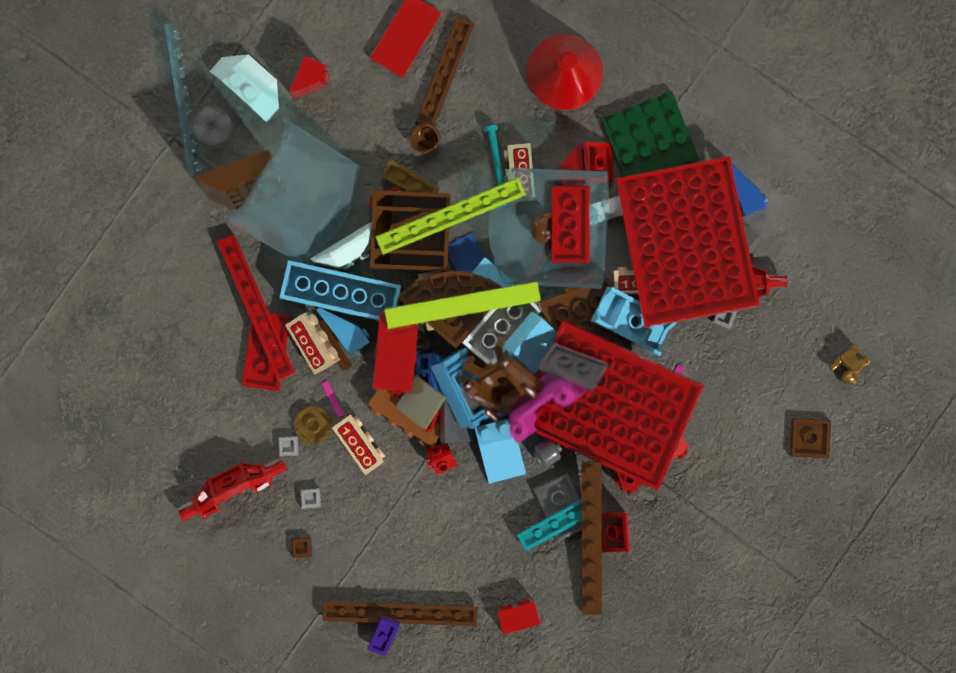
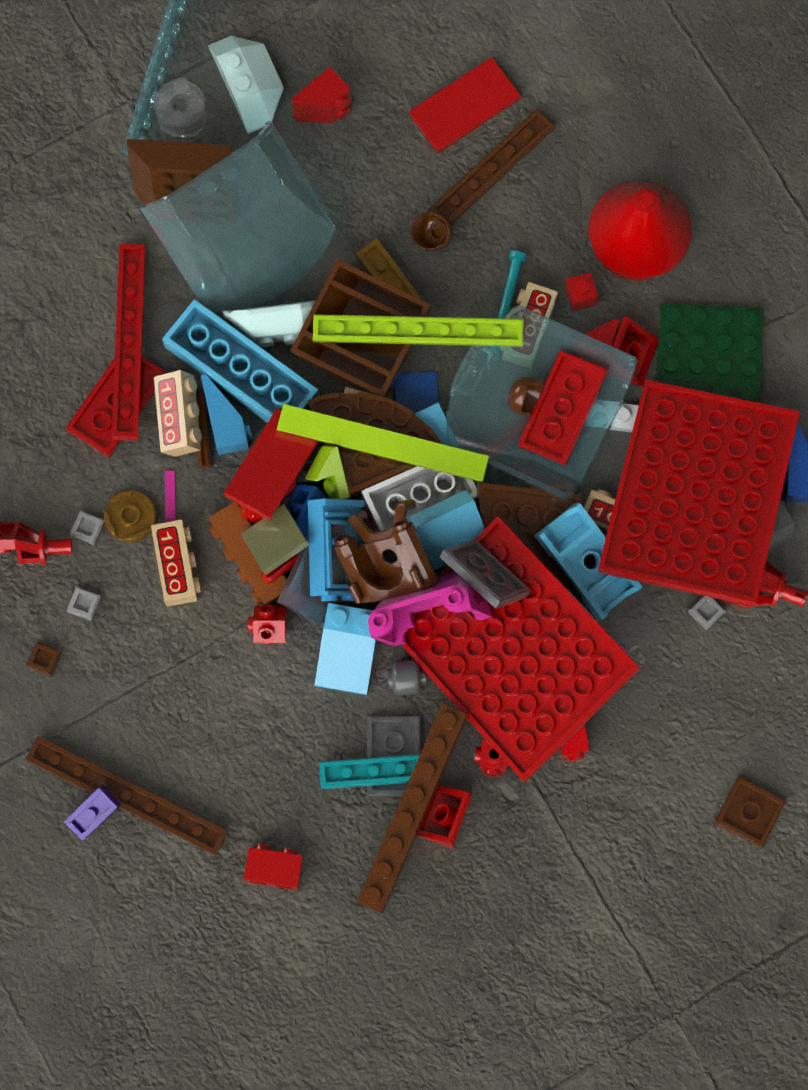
camera: 30 degrees right, 10 degrees down
(433, 338) = (329, 467): none -> lime slope
(545, 135) = (581, 292): none -> red brick

